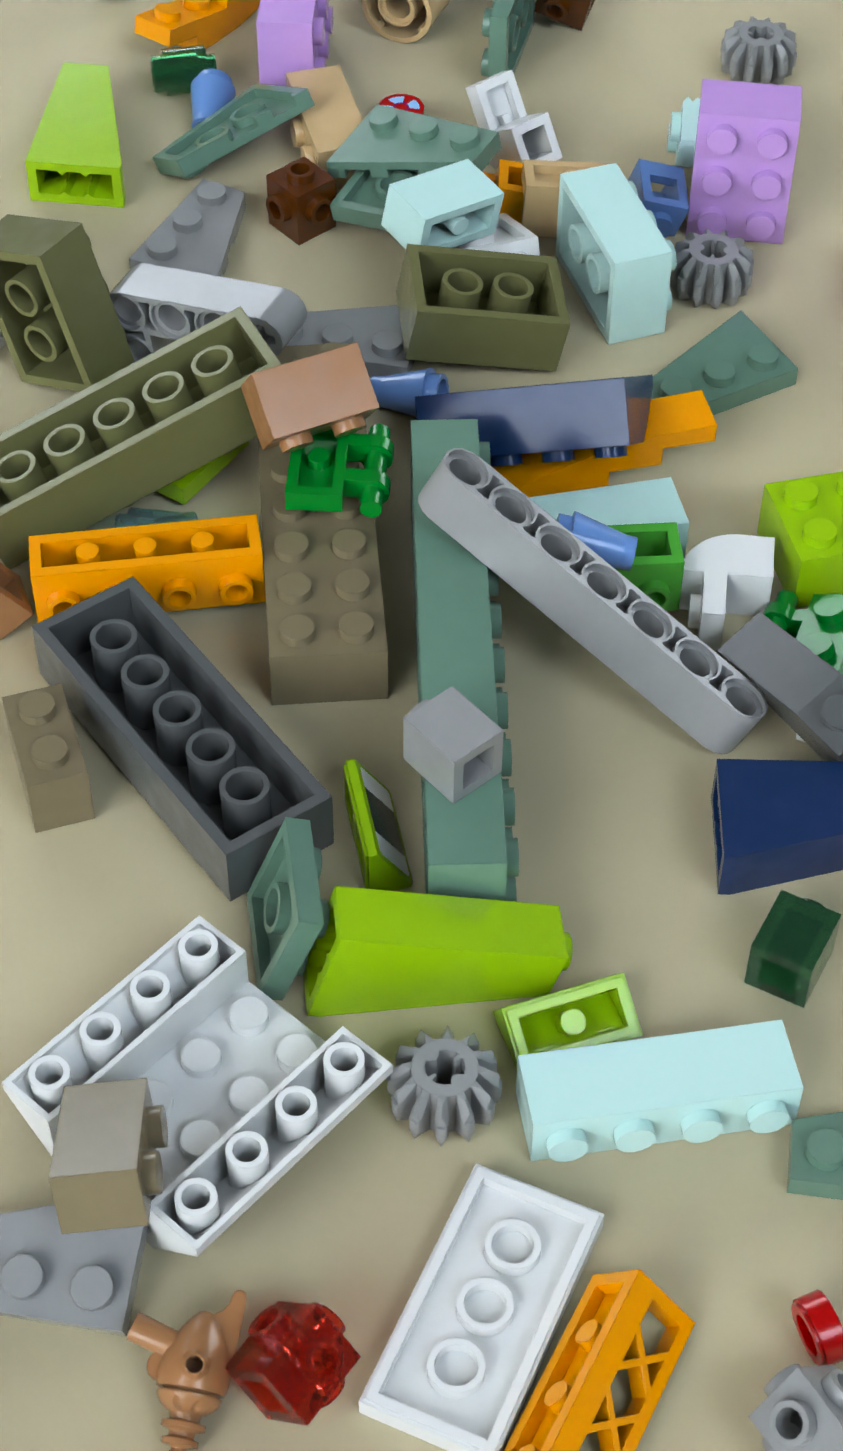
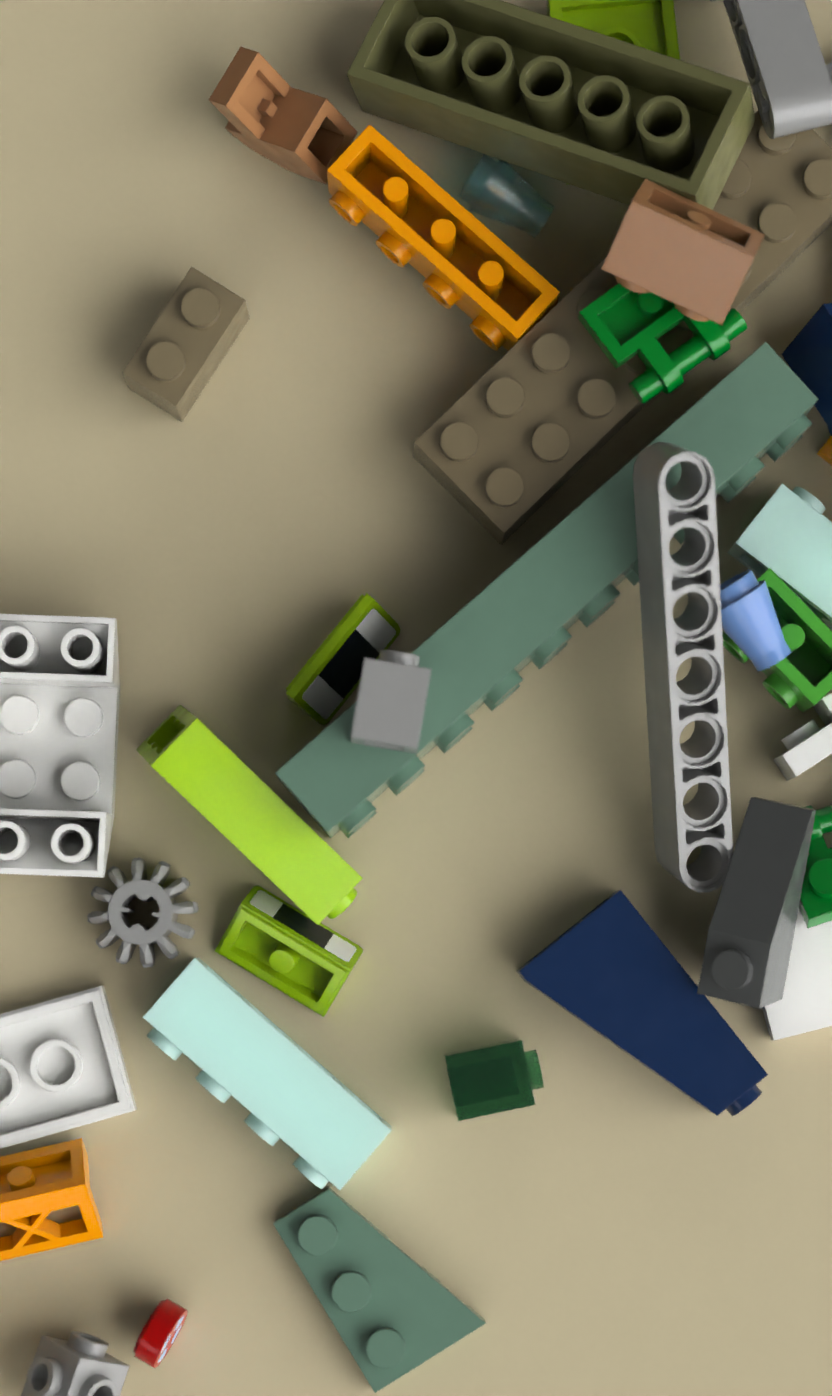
camera: 45 degrees right, 35 degrees up
(180, 732) = (290, 429): dark grey brick -> none
(286, 908) = (168, 688): sand green plate -> none

